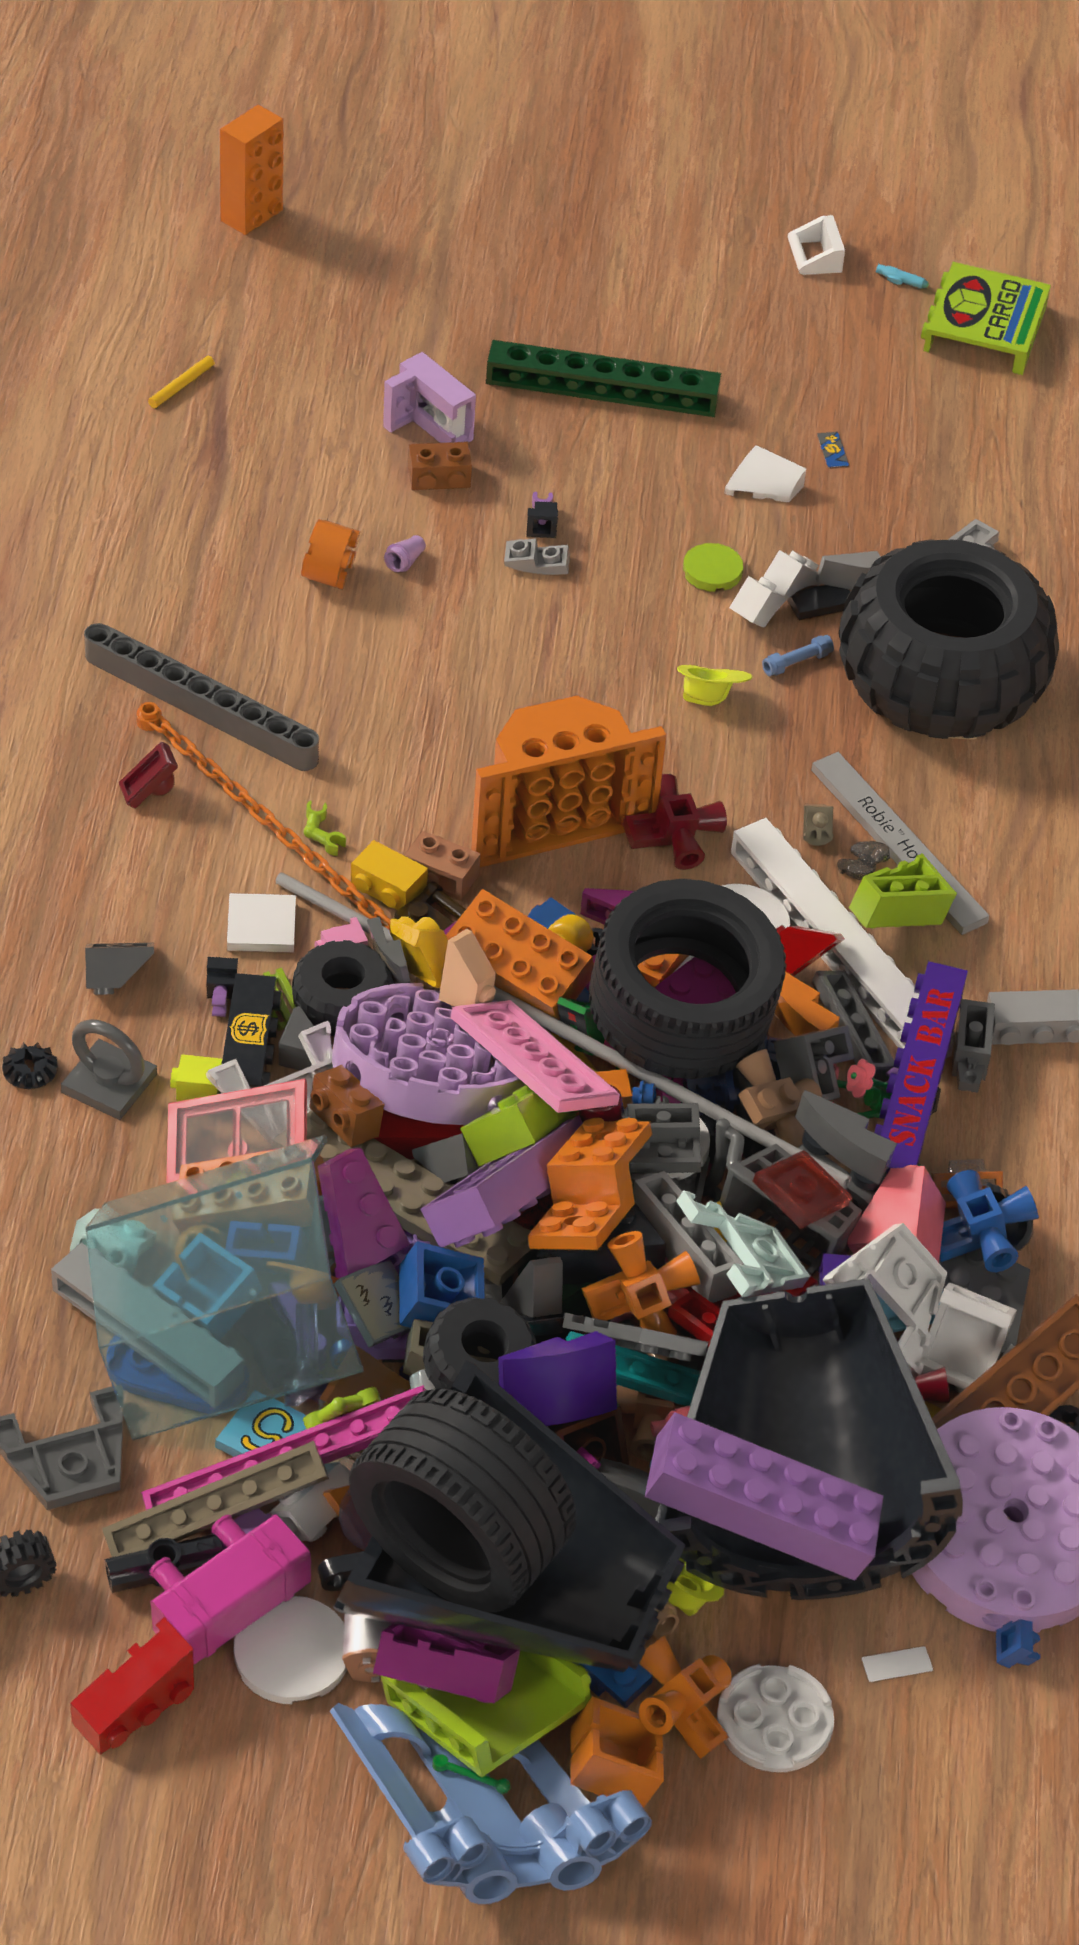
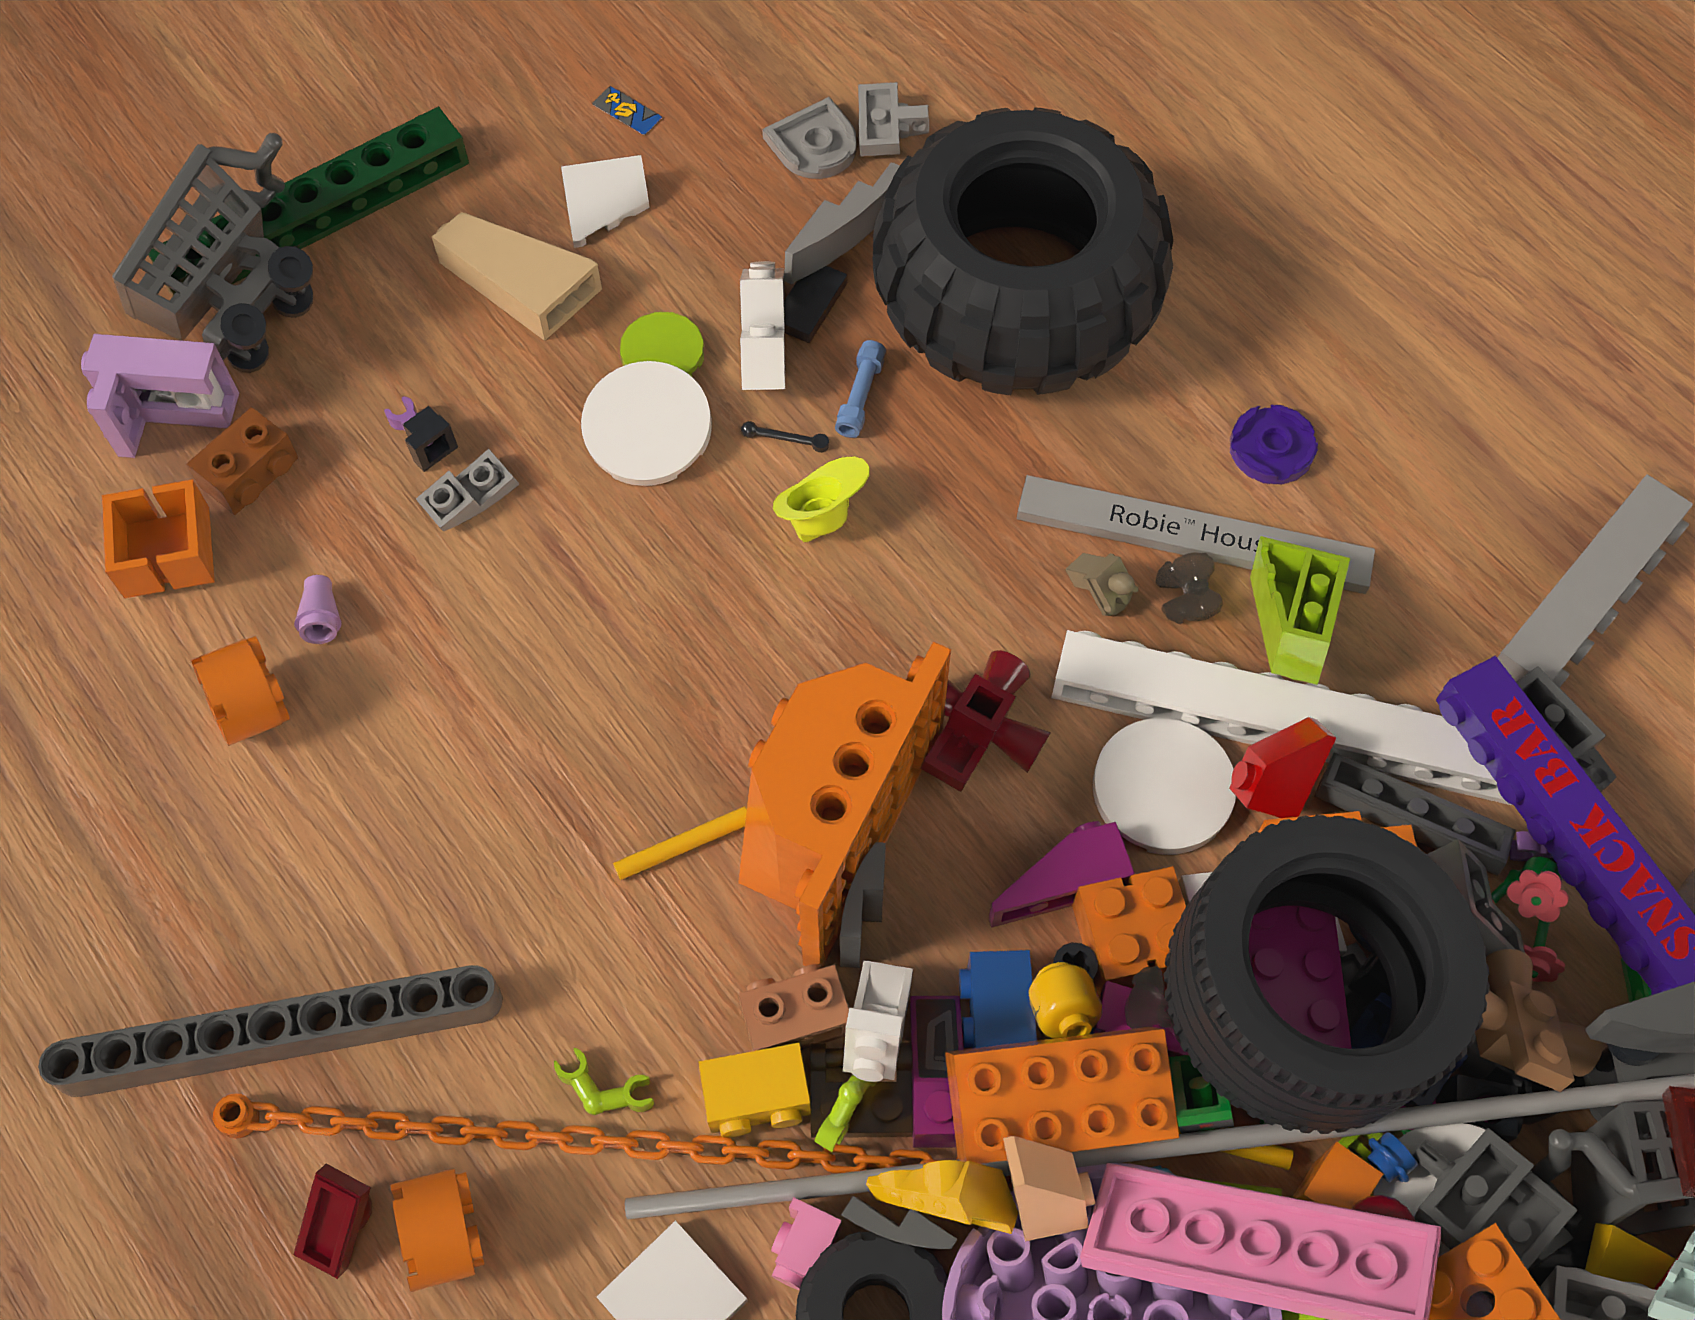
camera: 40 degrees left, 15 degrees up
(189, 810) = (434, 1229): none -> orange brick
(352, 468) = (154, 550): none -> orange piece
(425, 898) = (837, 1122): none -> lime arm
(450, 764) = (680, 843): none -> yellow bar
(462, 881) = (877, 1021): none -> white arch
(490, 369) = (275, 277): none -> dark grey piece
(521, 842) = (862, 904): none -> dark grey slope
(663, 589) = (646, 423): none -> white tile
(676, 480) = (518, 273): none -> tan slope
(746, 664) = (819, 442): none -> black hinge
(917, 525) = (814, 140): none -> light grey tile
(998, 838) = (1273, 444): none -> dark purple tile

